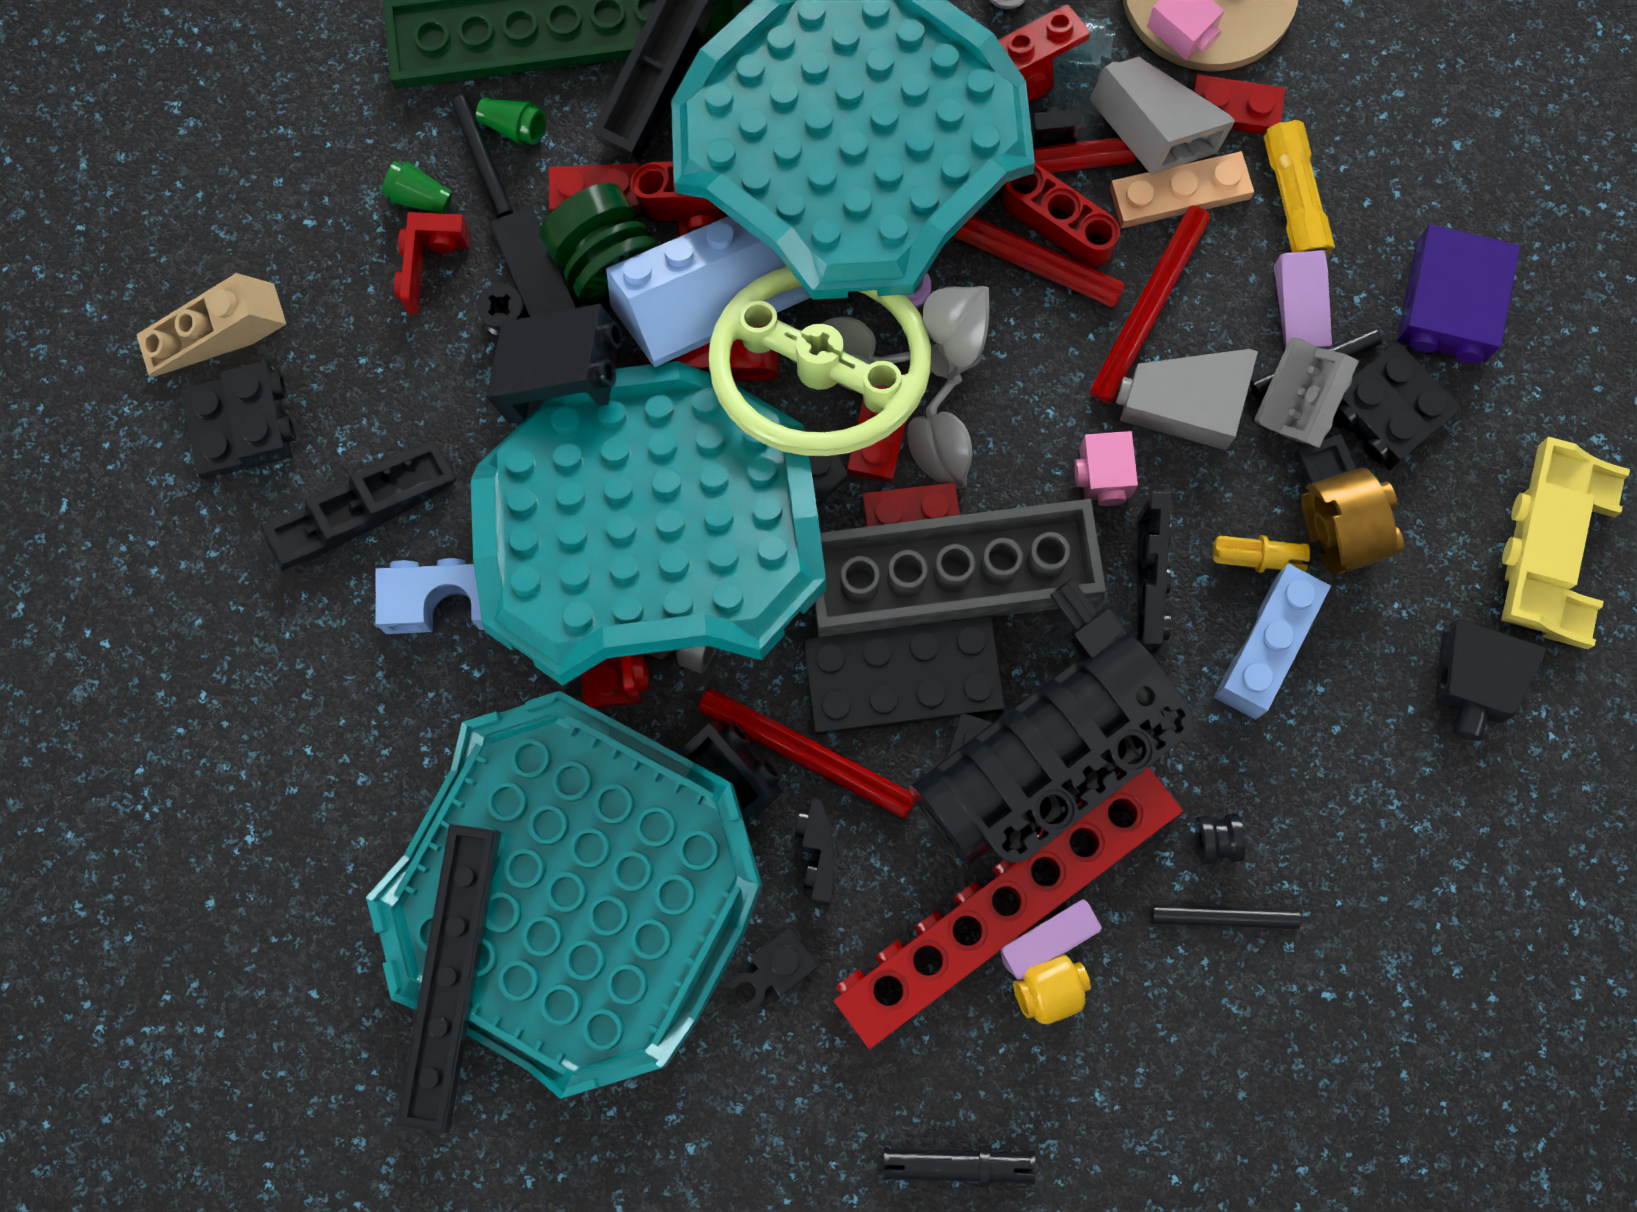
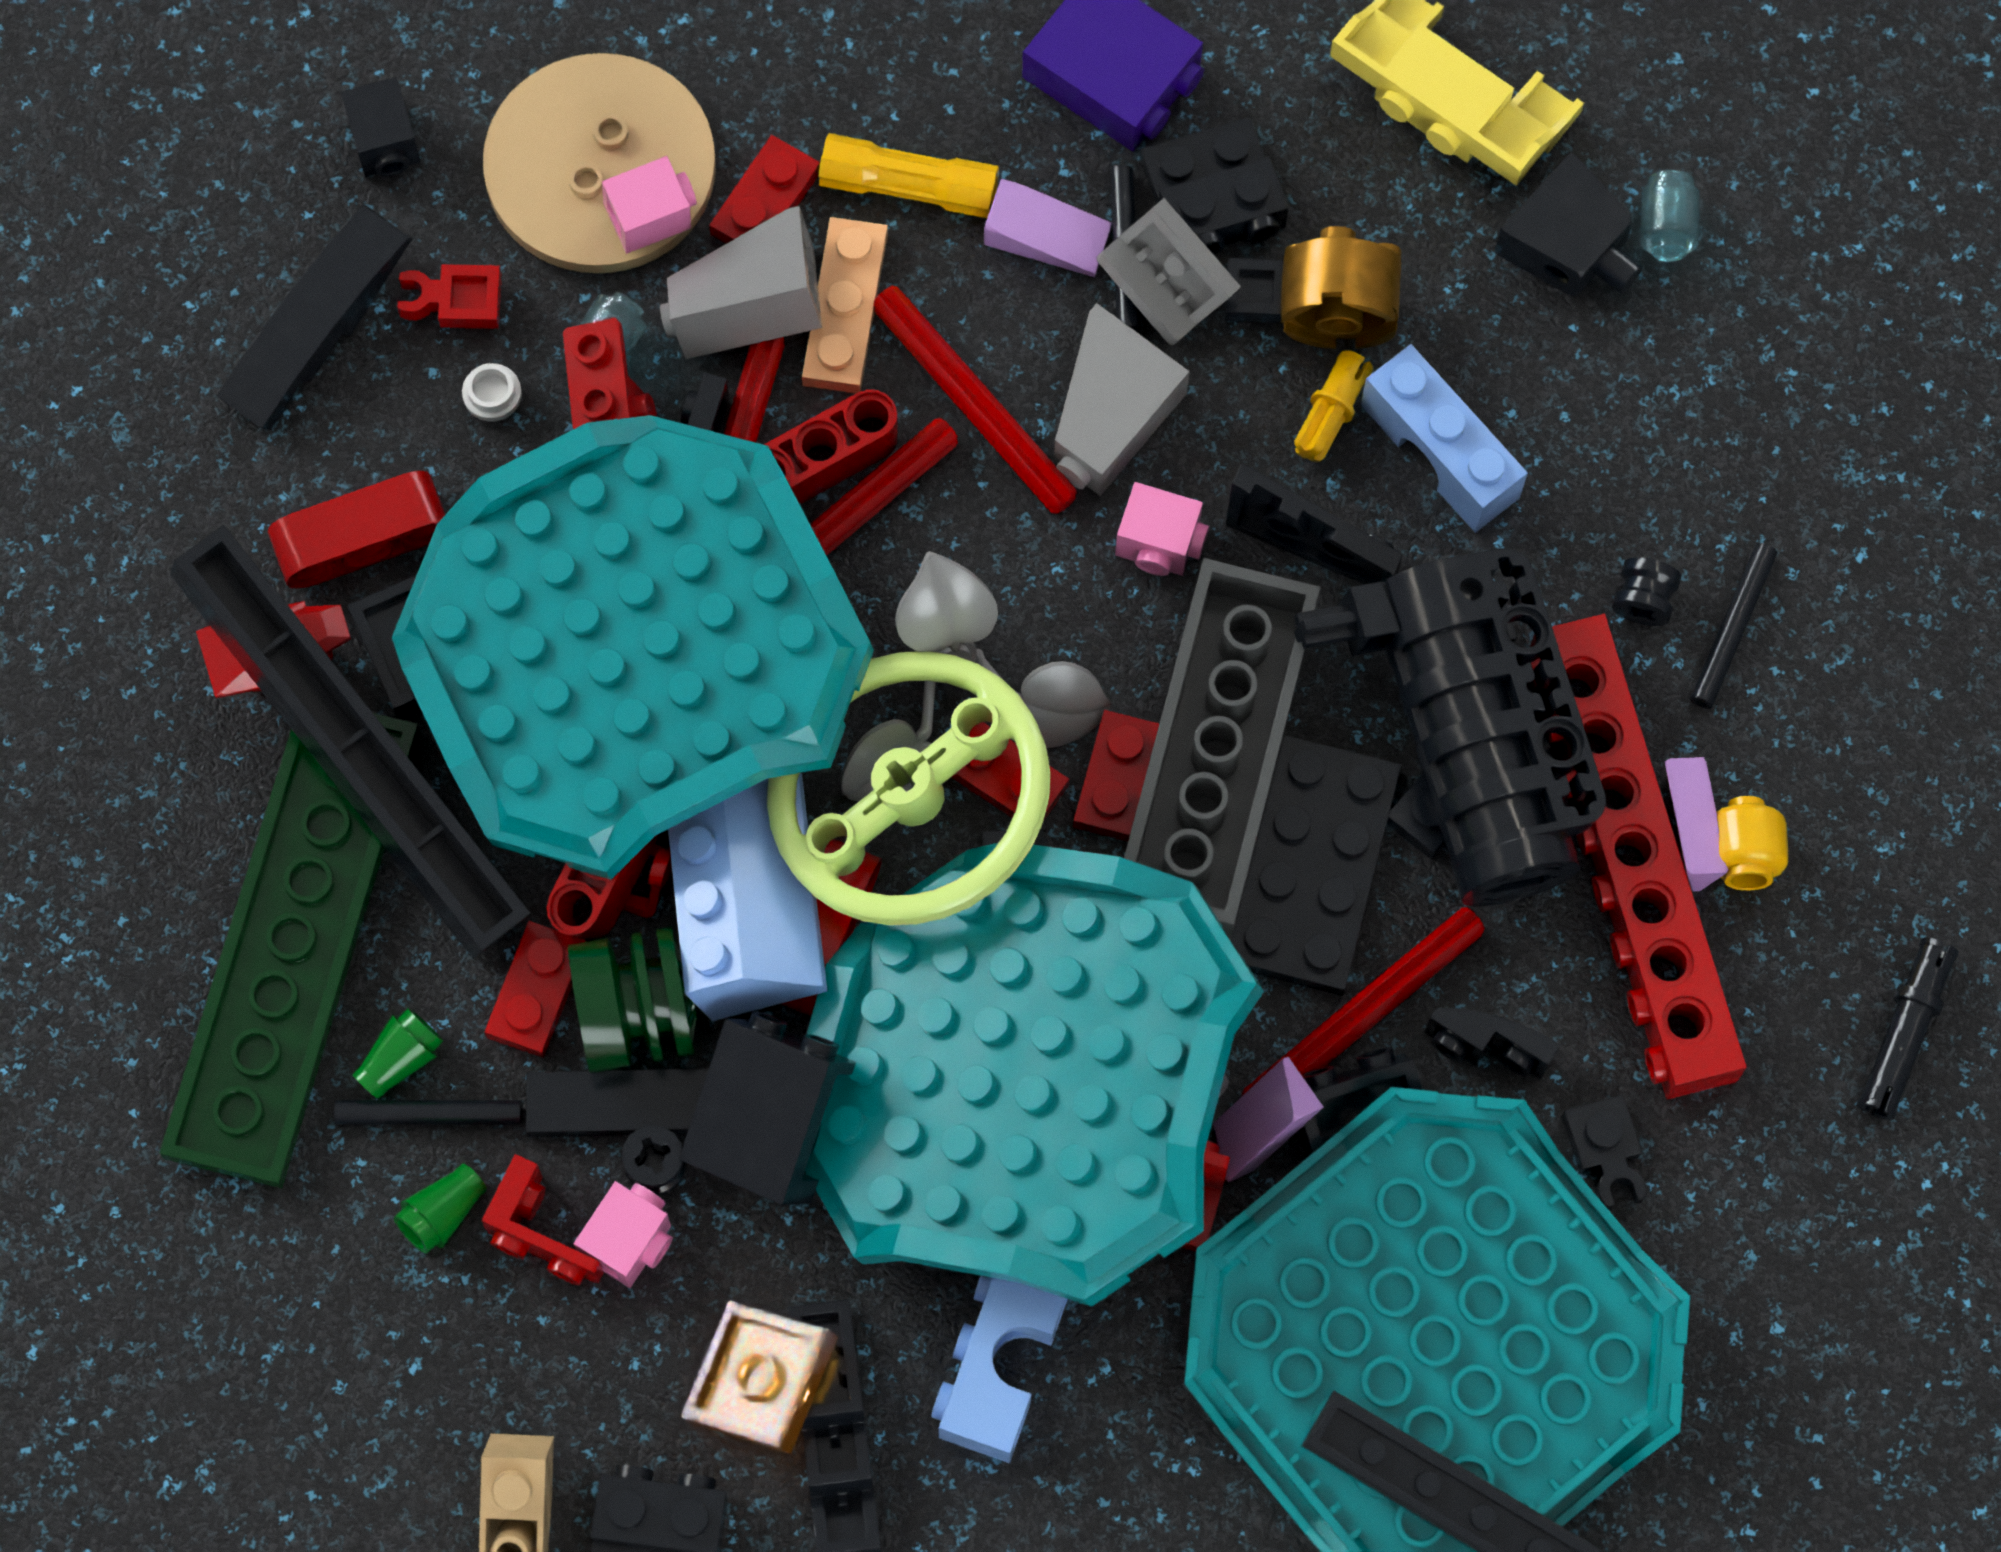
camera: 70 degrees left, 5 degrees down
(373, 438) = (759, 1377): none -> clear orange tile
(441, 312) = (626, 1232): none -> bright pink brick
(688, 708) = (1265, 1118): none -> lavender slope
(1534, 745) = (1670, 215): none -> clear light blue brick

